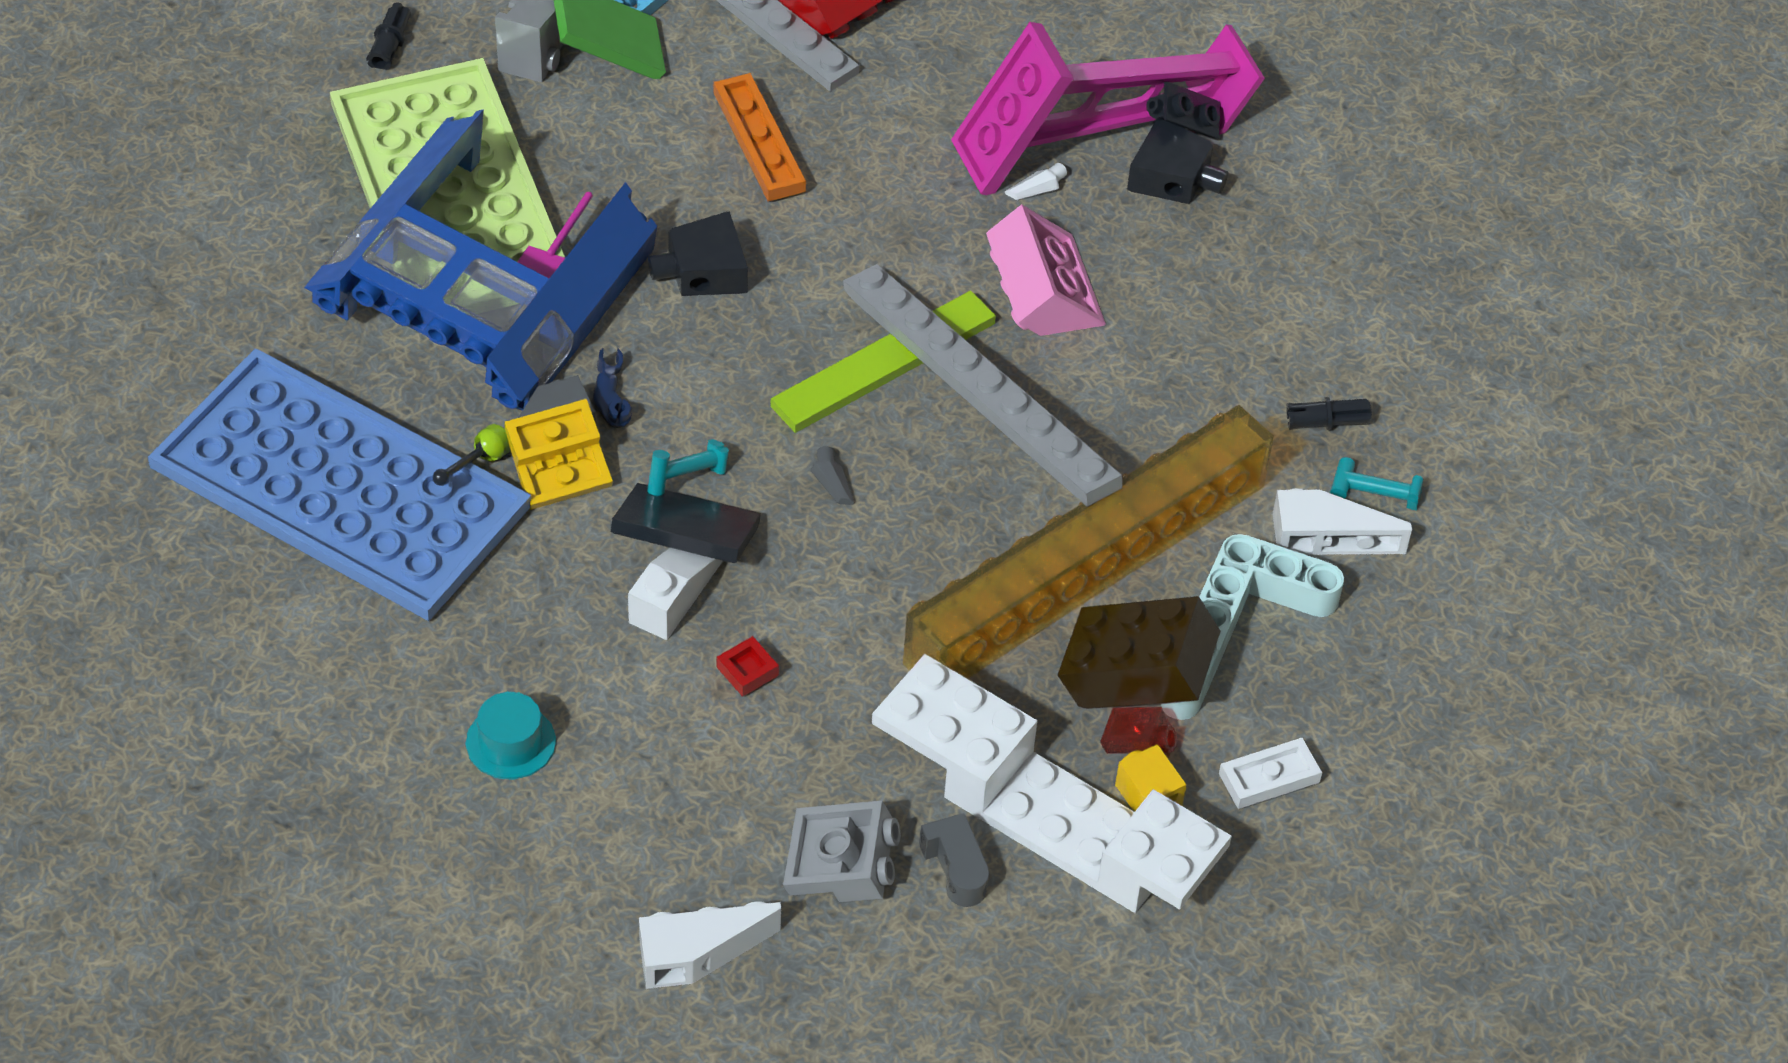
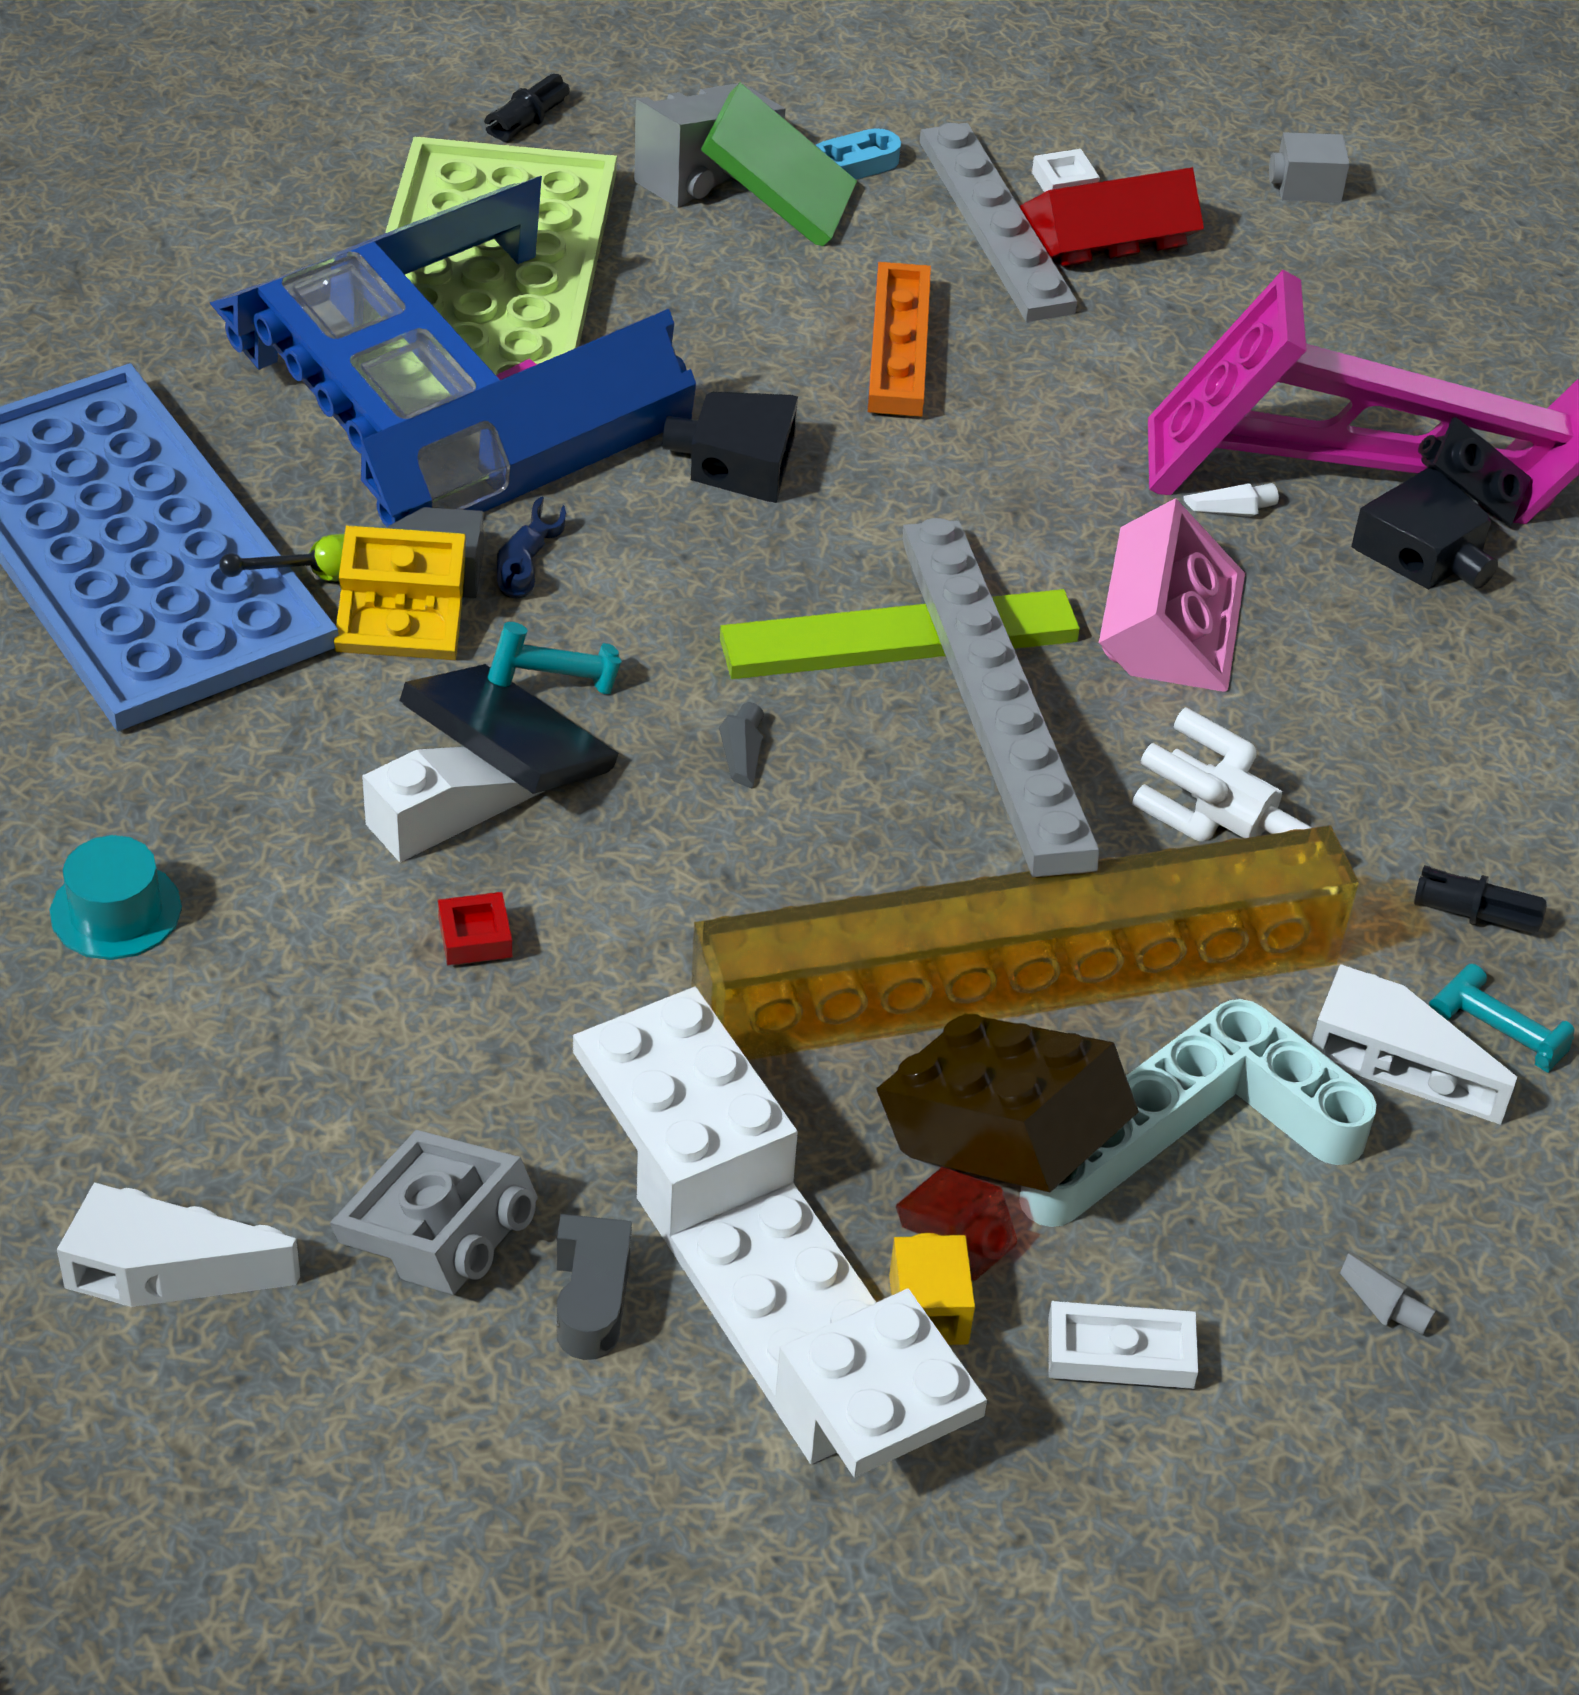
camera: 25 degrees right, 5 degrees down
(1151, 400) = (1223, 792): none -> white plant
(1395, 684) = (1385, 1295): none -> light grey bar

